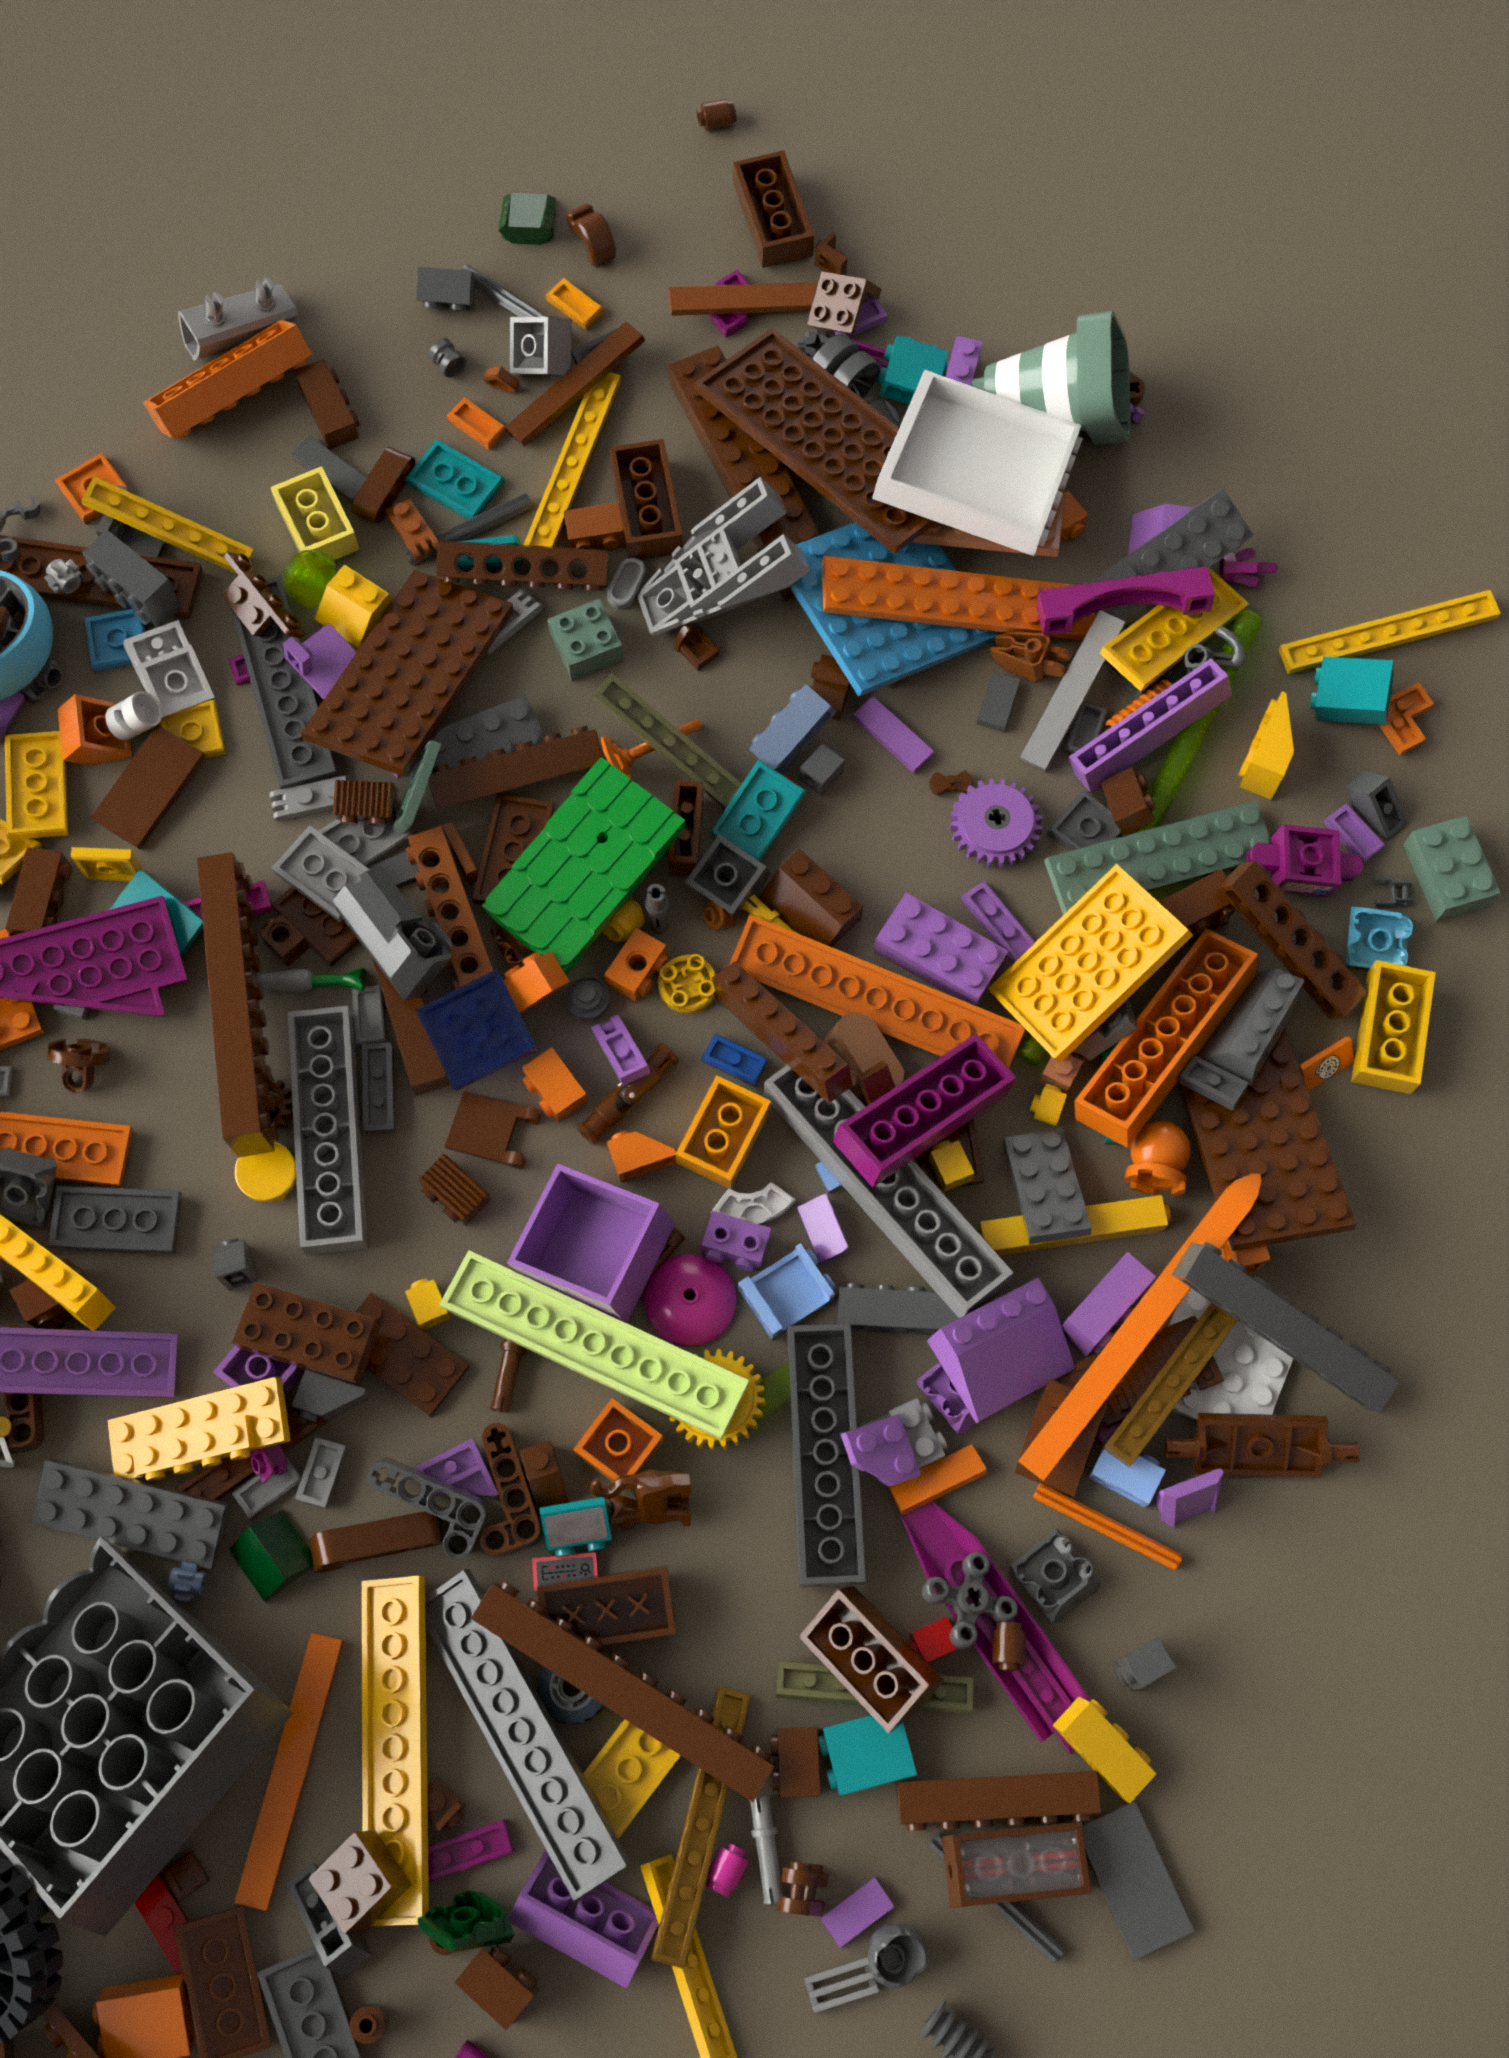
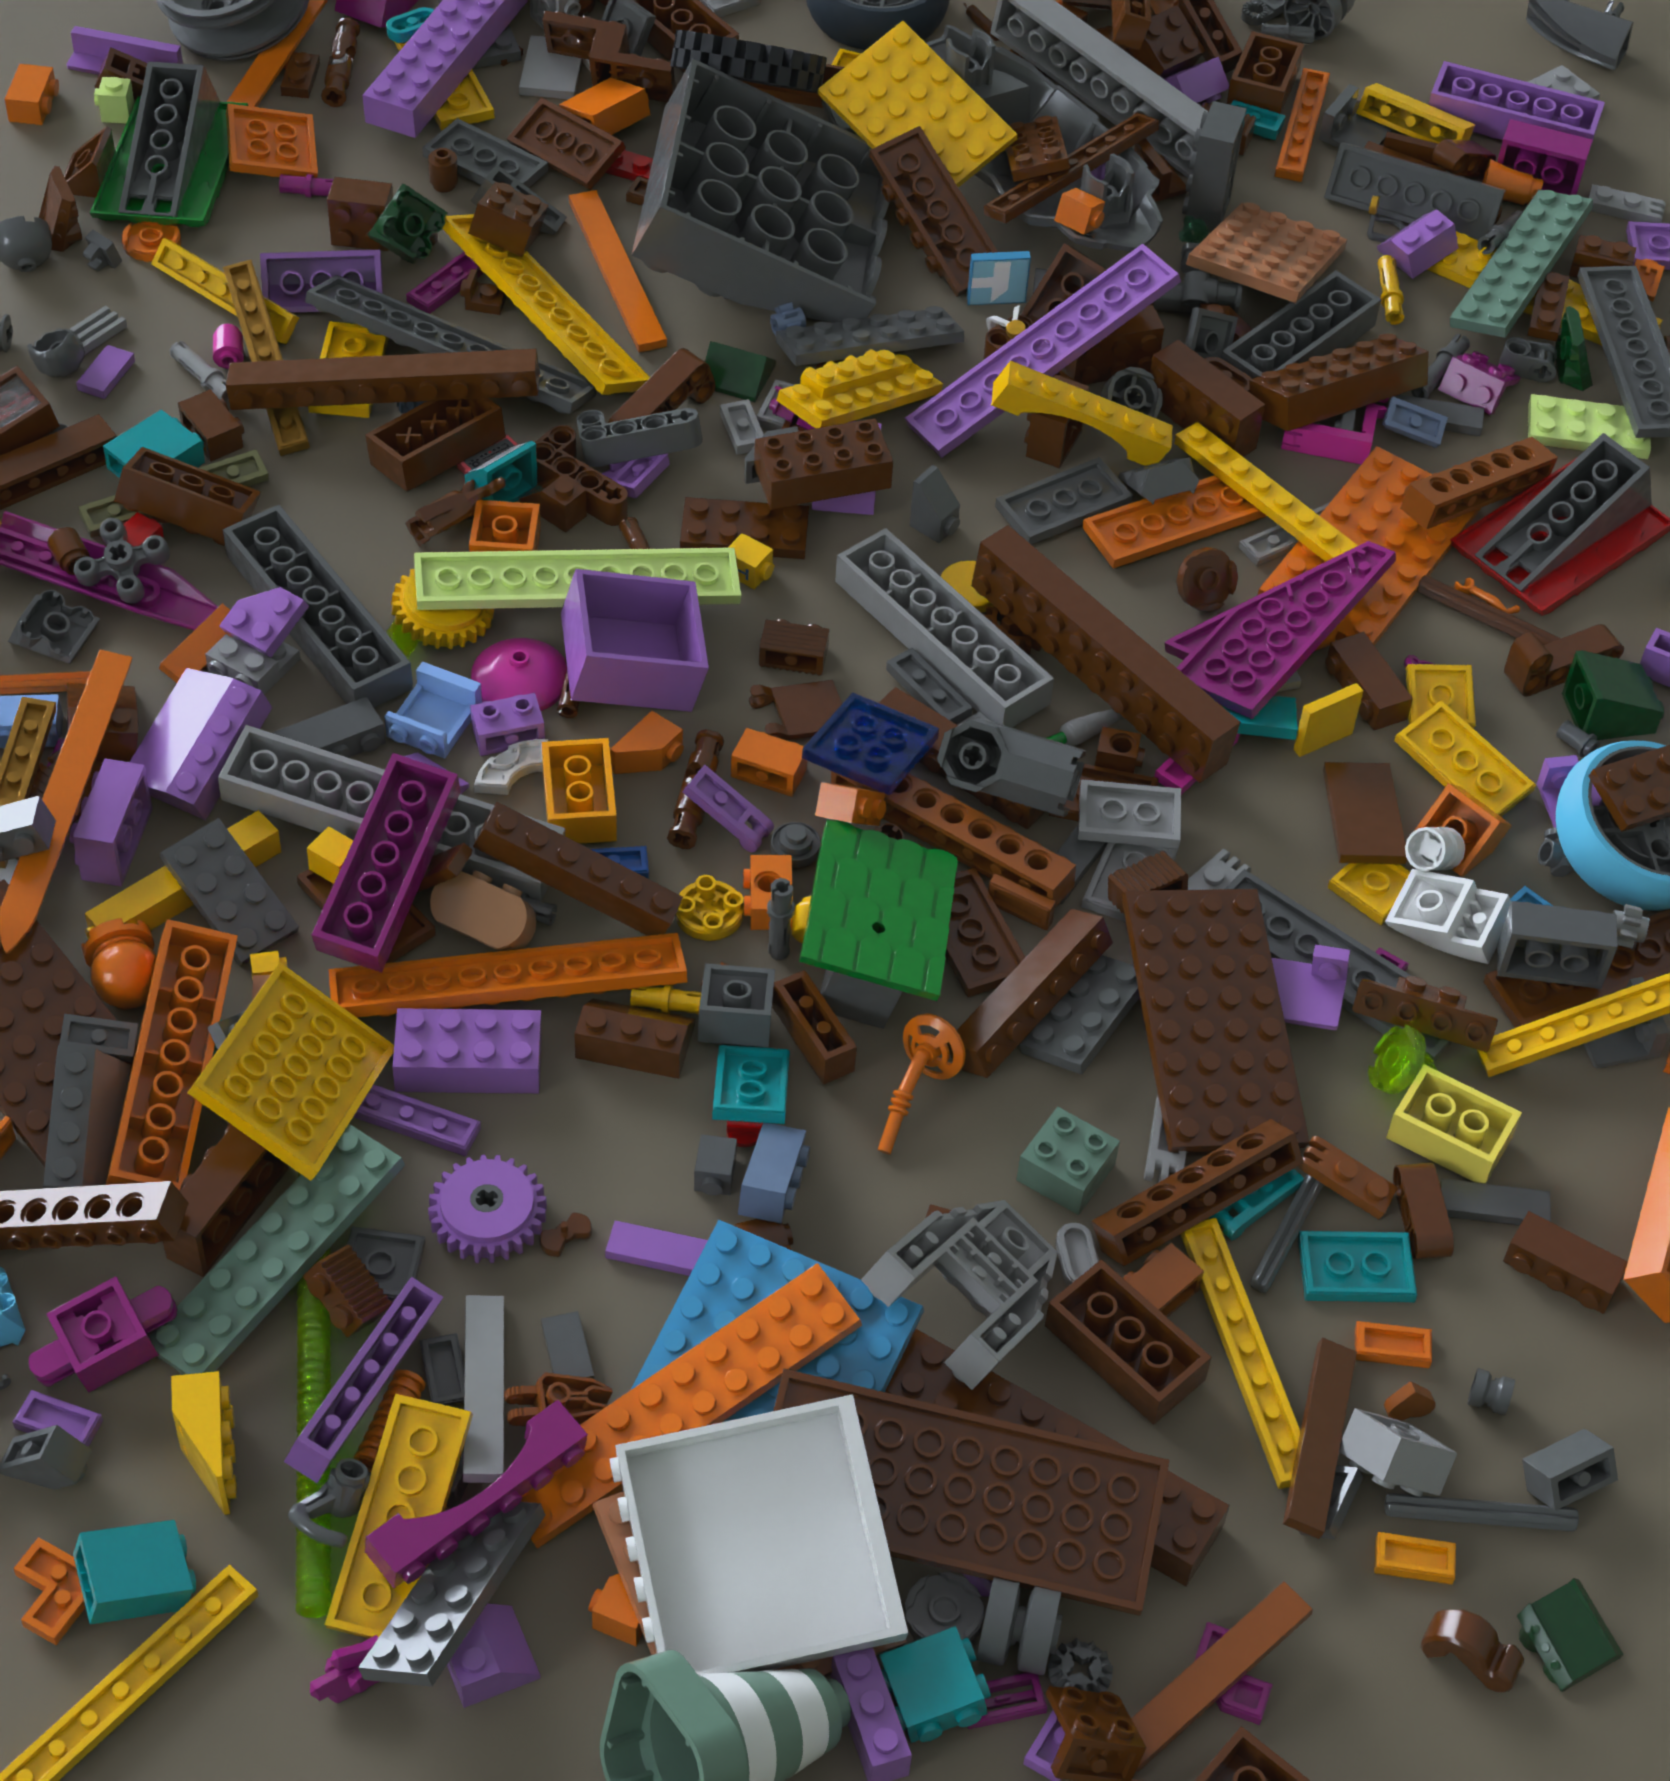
camera: 145 degrees right, 20 degrees down
(352, 606) = (1334, 1074): yellow slope -> none
(416, 787) = (1104, 902): sand green tile -> none
(667, 739) = (892, 1078): olive plate -> none
(804, 1881) = (156, 349): reddish brown brick -> none

